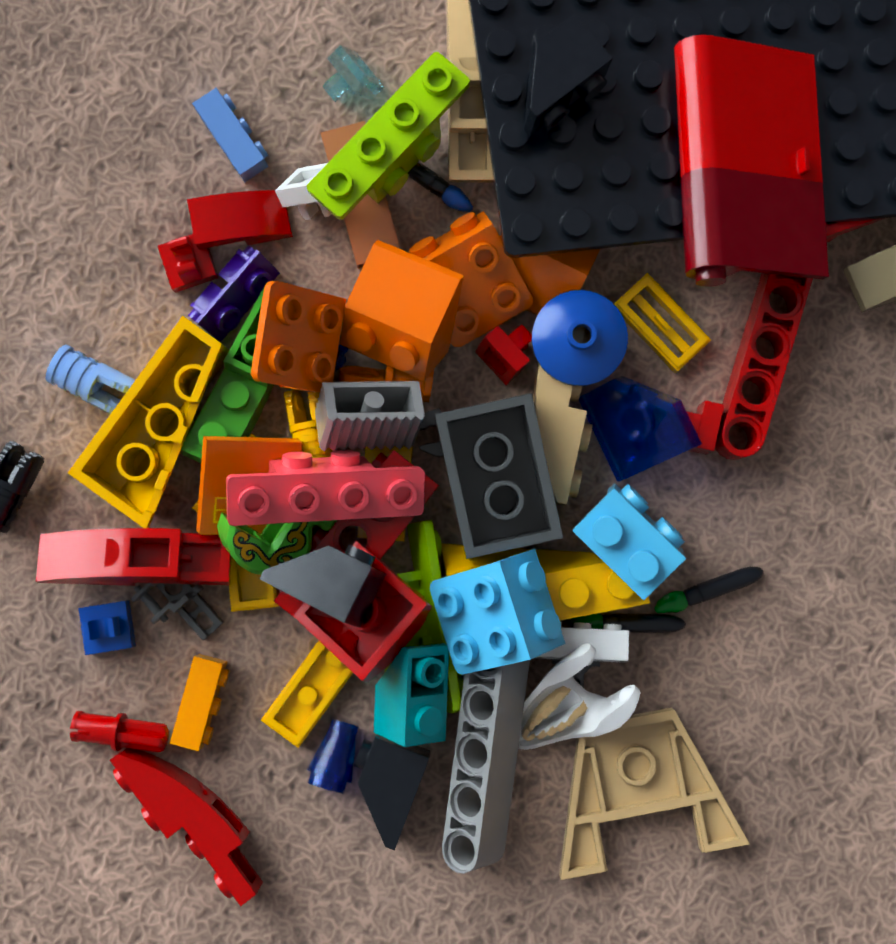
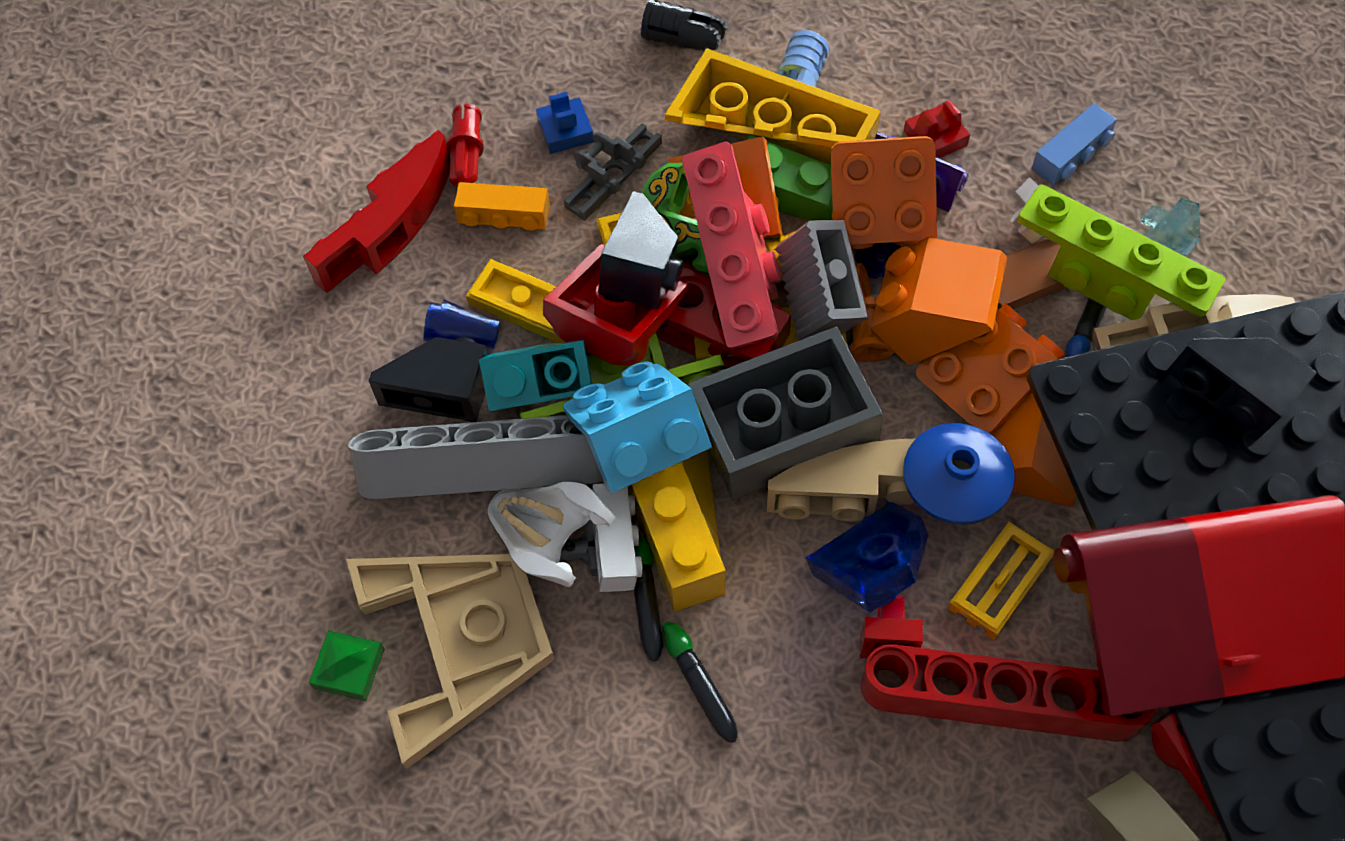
camera: 80 degrees right, 25 degrees down
(132, 557) = (634, 117): red slope -> none
(238, 217) = (993, 160): red slope -> none
(505, 352) = (923, 413): red tile -> none
(631, 541) = (746, 556): medium azure bracket -> none
(649, 884) = (346, 665): none -> green tile

